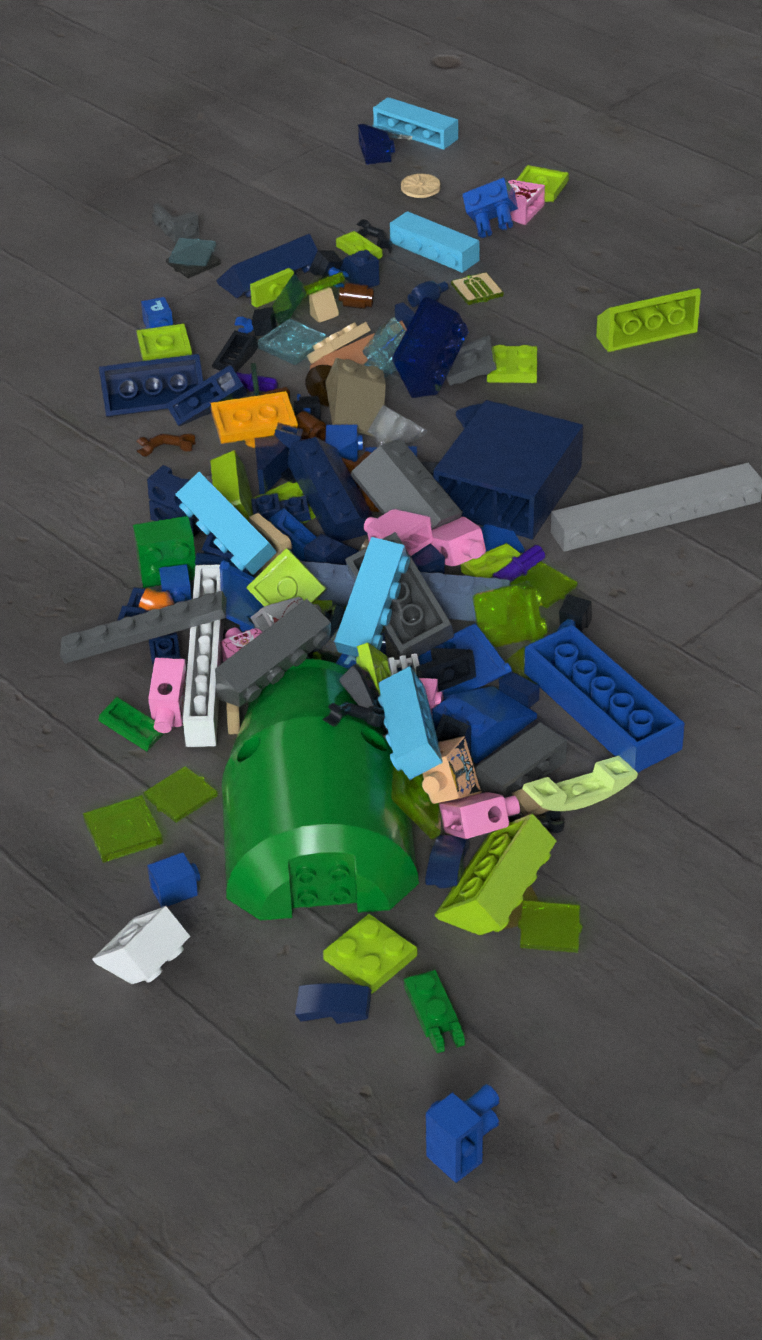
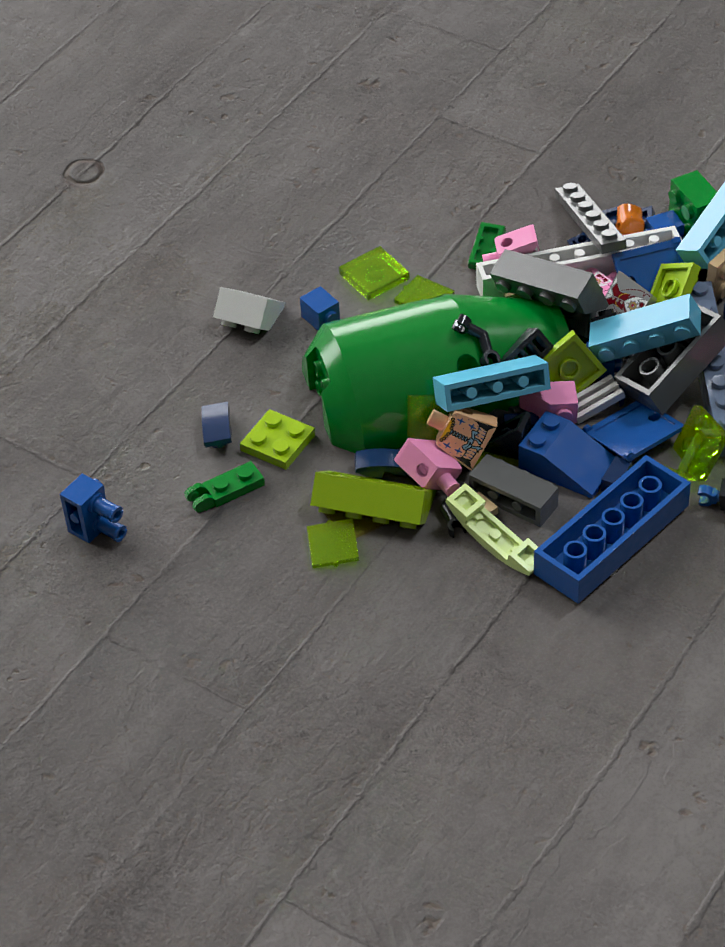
camera: 80 degrees right, 5 degrees up
(449, 667) = (602, 413): black slope -> none

